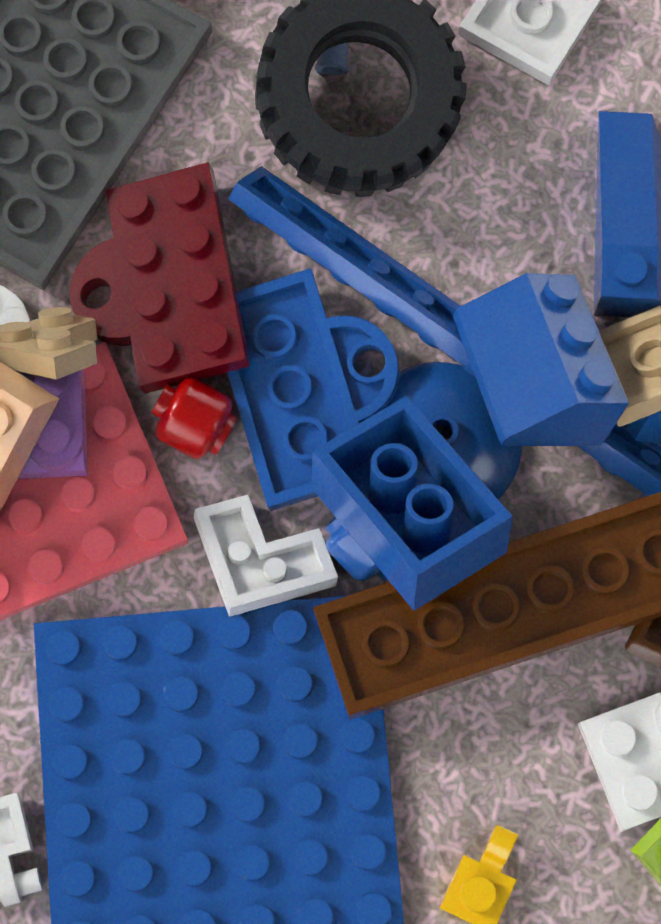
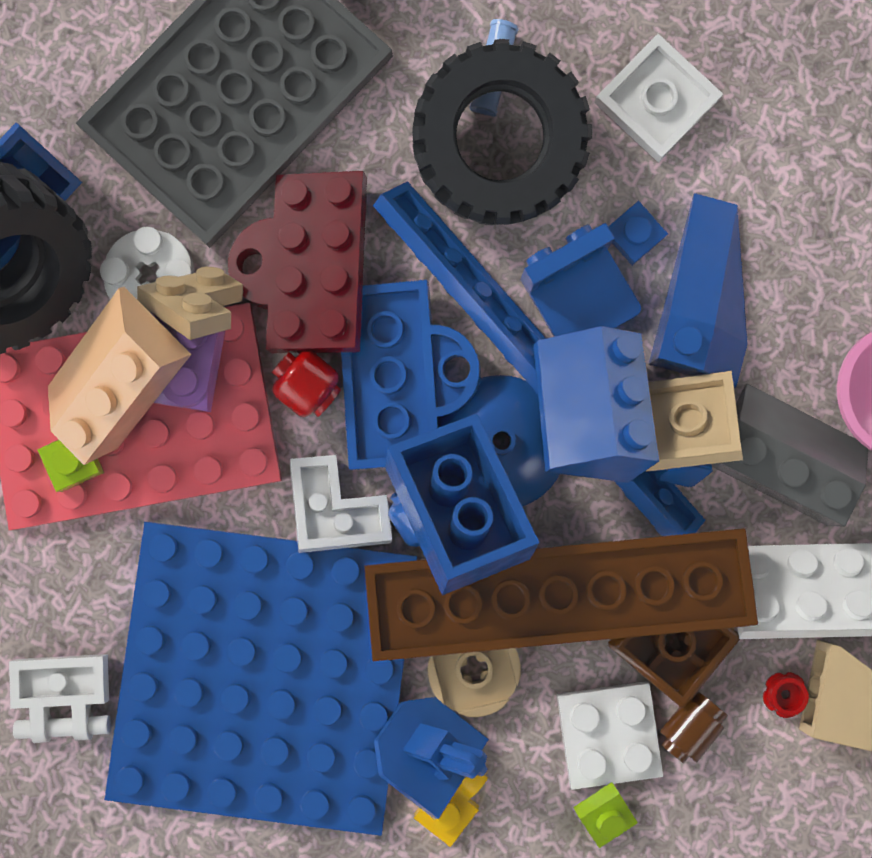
camera: 10 degrees right, 10 degrees up
(439, 820) = (428, 753): none -> blue piece
(461, 743) = (480, 696): none -> tan plate
(488, 235) = (580, 284): none -> blue bracket
(541, 169) = (636, 233): none -> blue plate

